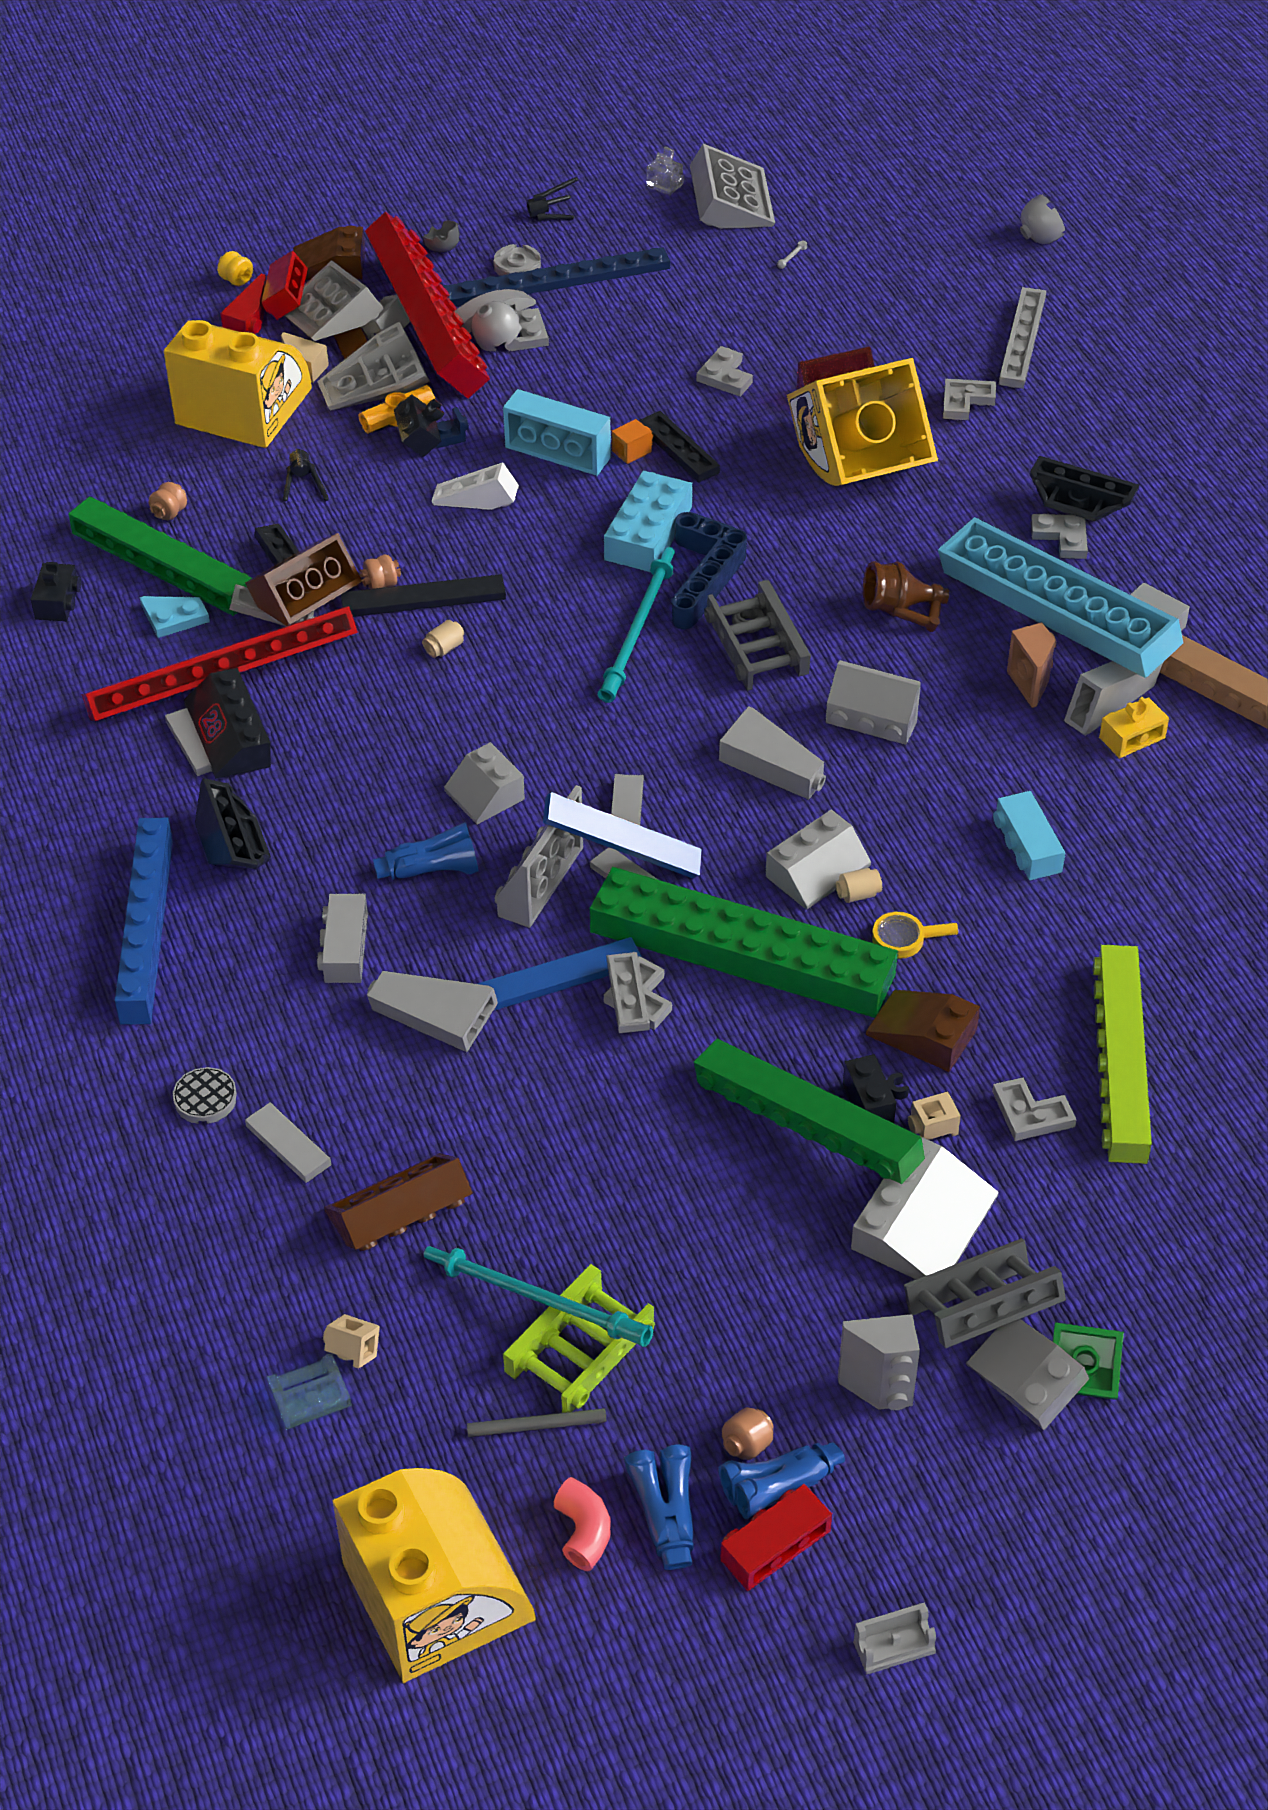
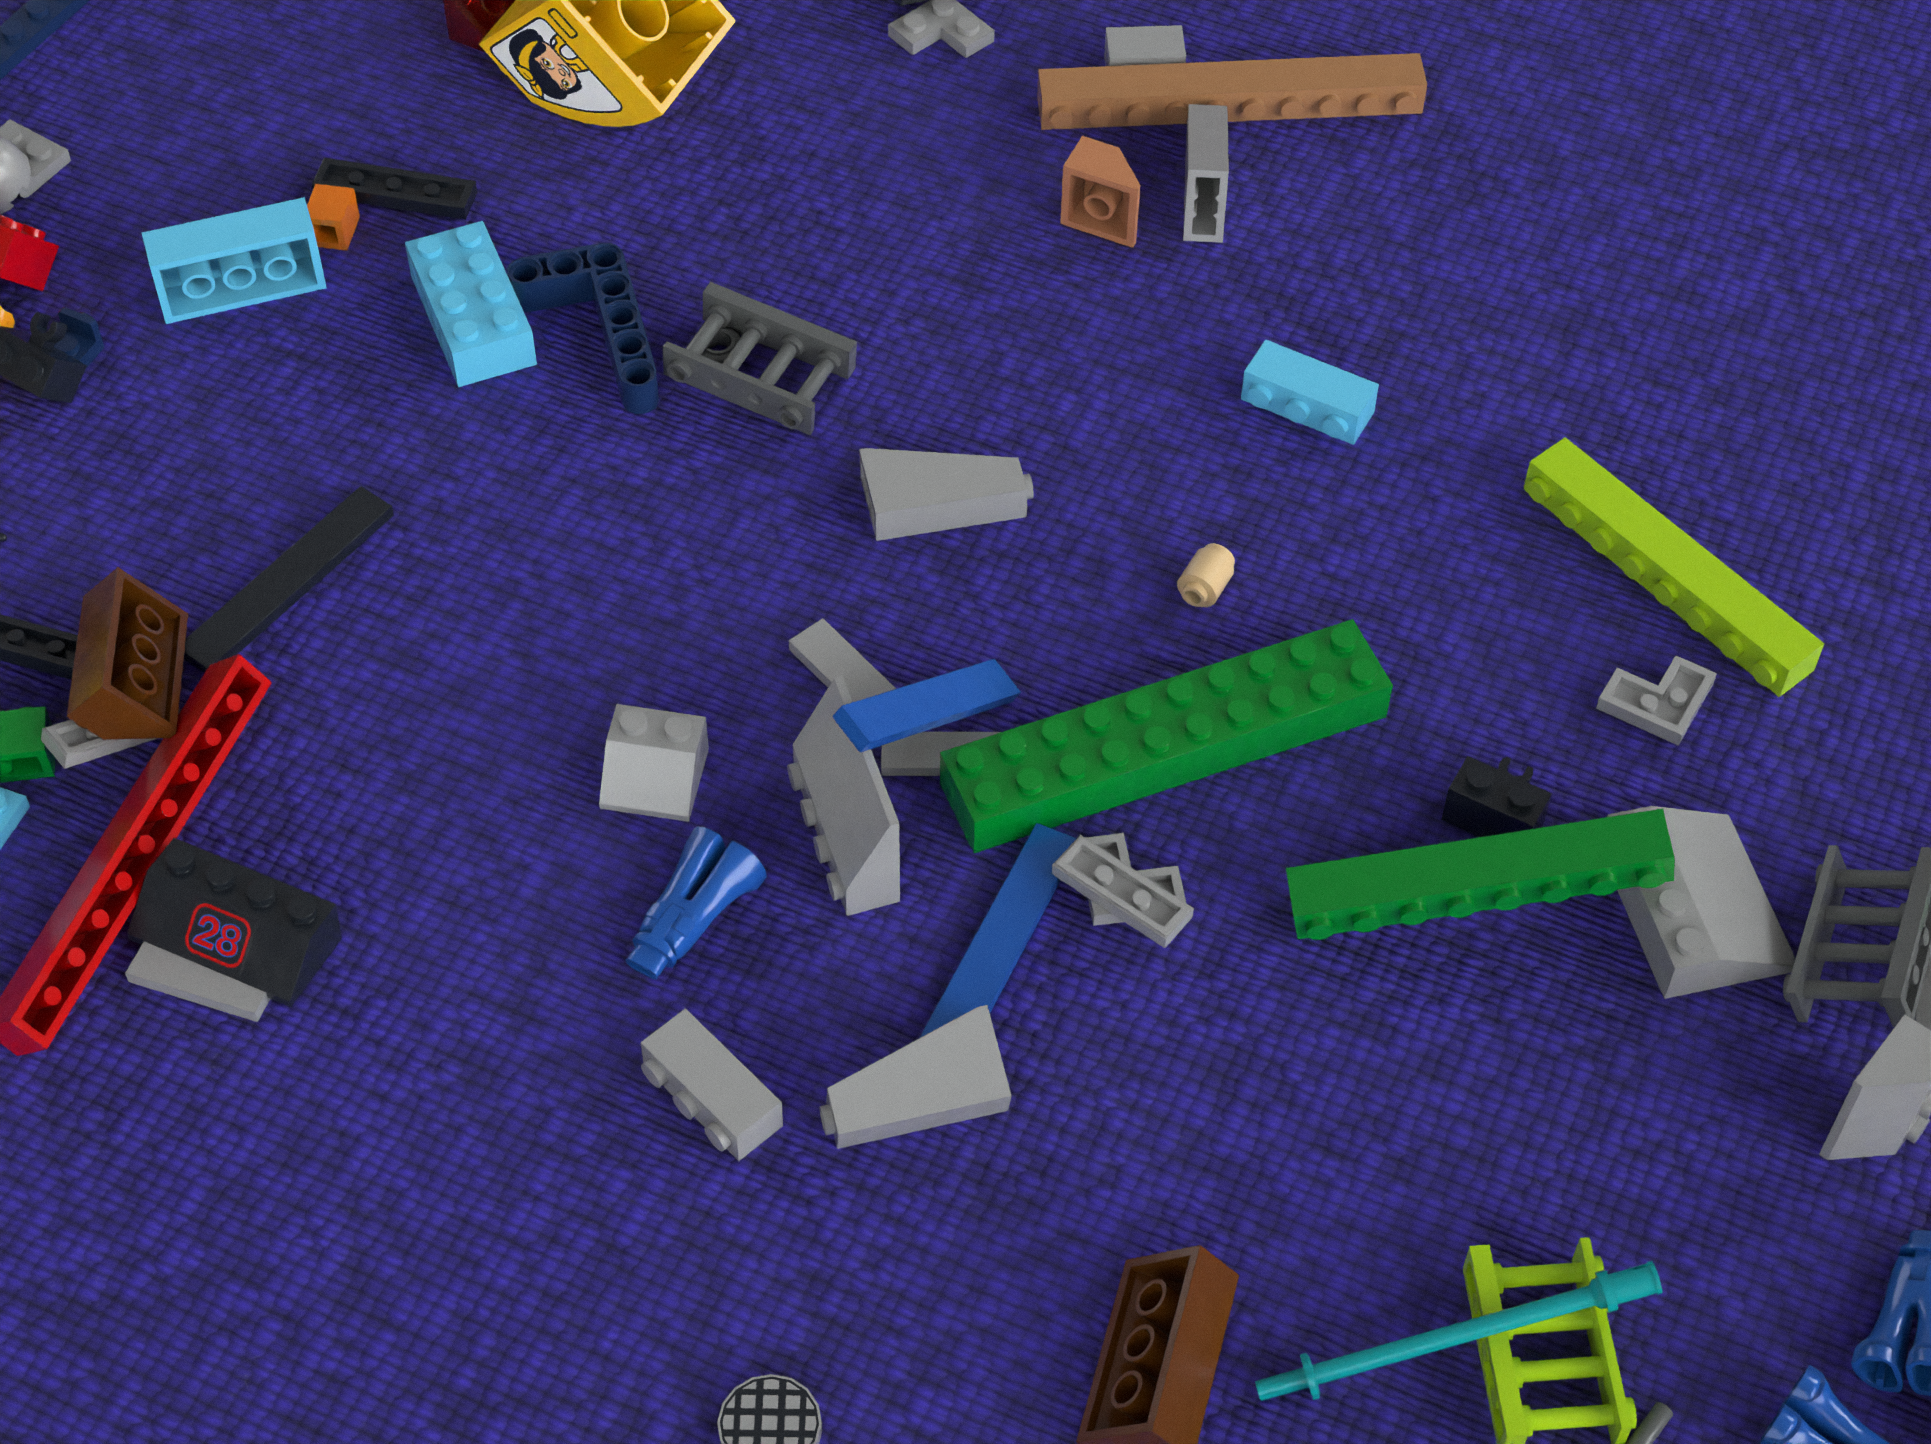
camera: 45 degrees left, 5 degrees up
(144, 922) = (432, 1264): blue brick -> none
(228, 828) = (404, 1061): black wedge -> none
(288, 1142) = (940, 1398): light grey tile -> none
(380, 572) = (203, 586): nougat piece -> none
(443, 638) = (383, 616): tan brick -> none
(480, 489) = (207, 397): white slope -> none
(614, 676) = (648, 521): teal bar -> none
(722, 373) = (338, 72): light grey plate -> none
(748, 1432) = (1830, 1297): nougat head -> none
(814, 859) = (1132, 580): light grey slope -> none
(873, 702) = (987, 351): light grey slope -> none
(896, 589) = (856, 205): reddish brown piece -> none
(906, 932) = (1308, 599): piece -> none
(926, 1025) = (1458, 684): reddish brown slope -> none
(934, 1116) = (1584, 789): tan brick -> none
(1061, 597) = (1057, 95): medium azure brick -> none
(1134, 727) = (1269, 198): yellow brick -> none

